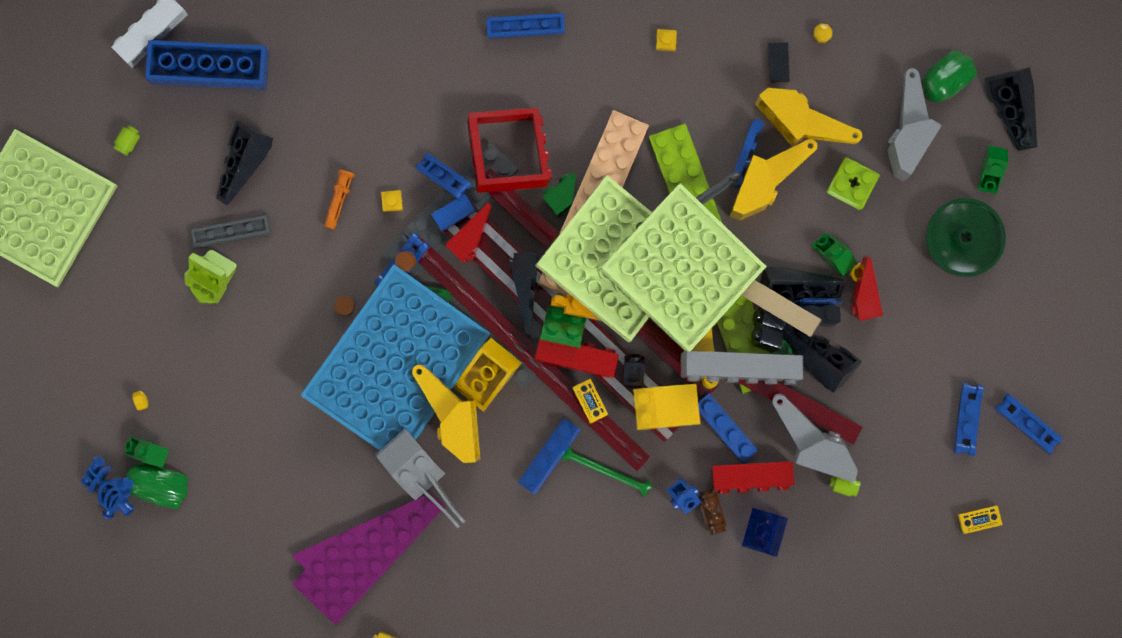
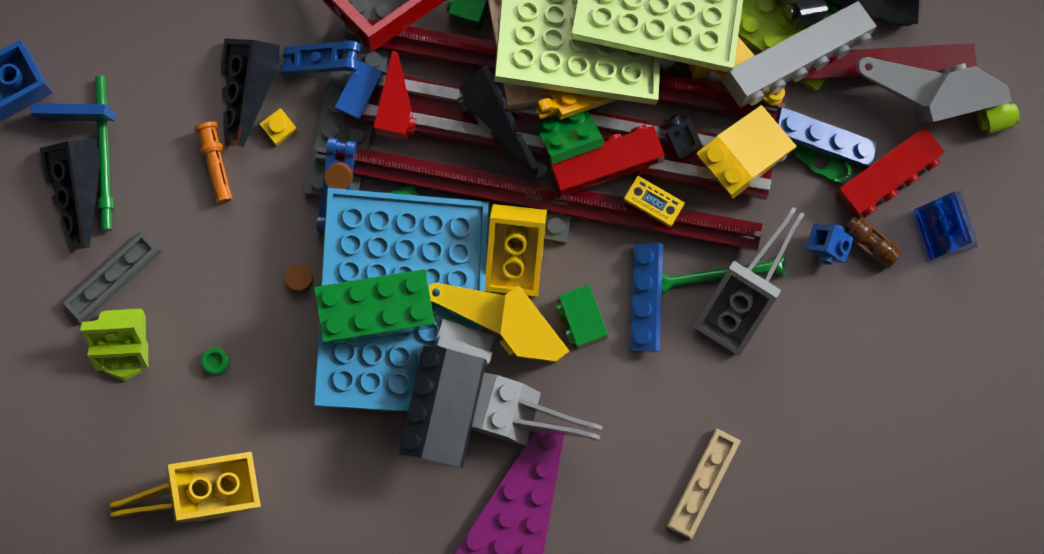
camera: 30 degrees left, 5 degrees down
(140, 400) = (126, 537): yellow tile -> none
(203, 403) = (202, 489): none -> yellow slope
(255, 182) = (105, 202): none -> green bar
(261, 325) = (215, 361): none -> green tile
(269, 111) = (72, 112): none -> blue tile
(373, 359) = (374, 307): none -> green brick
(376, 446) = (442, 407): none -> black slope
(394, 156) = (249, 74): none -> black wedge
(417, 413) = (464, 340): none -> light grey panel
(501, 443) = (582, 317): none -> green brick
(509, 593) = (703, 483): none -> tan tile
(604, 497) = (742, 299): none -> light grey slope
(720, 452) = (835, 171): none -> green piece

